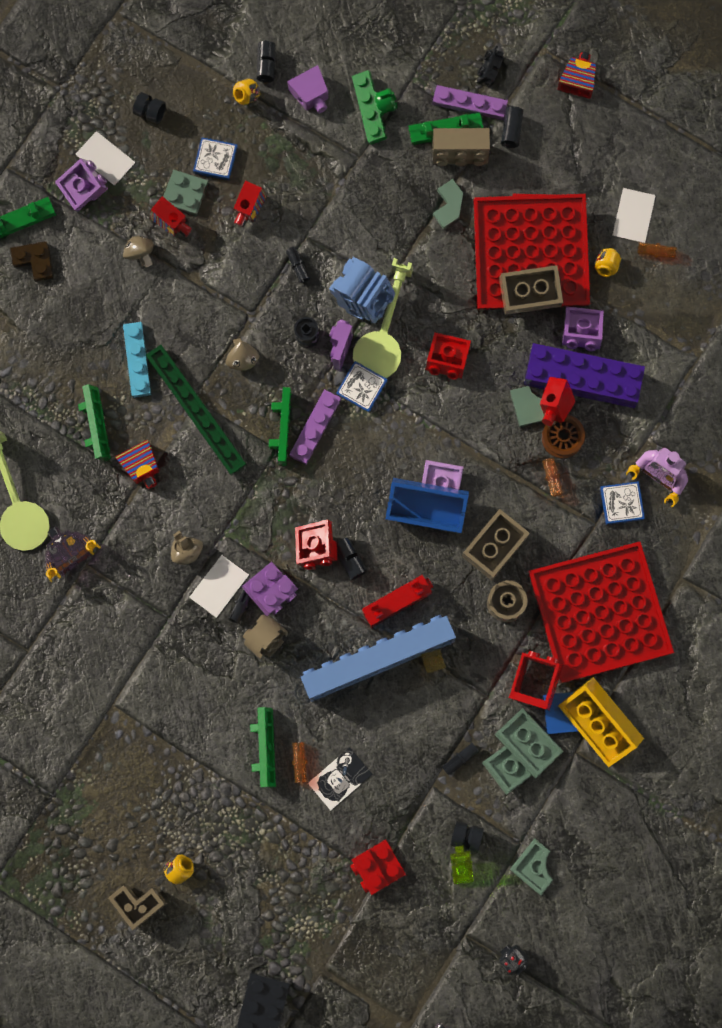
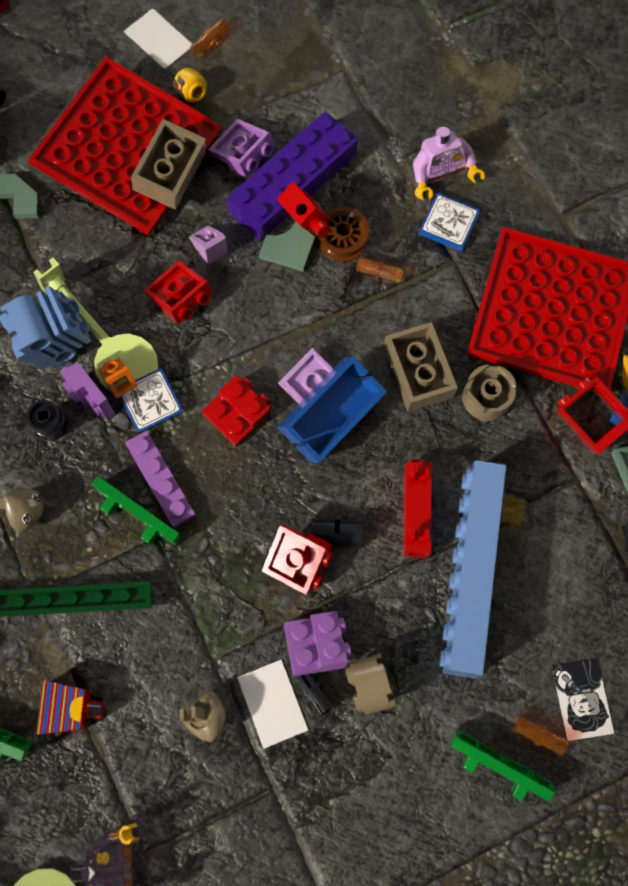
camera: 65 degrees left, 5 degrees down
(364, 352) = (113, 371): none -> orange brick
(391, 445) = (237, 410): none -> red plate
(496, 352) = (210, 244): none -> lavender slope

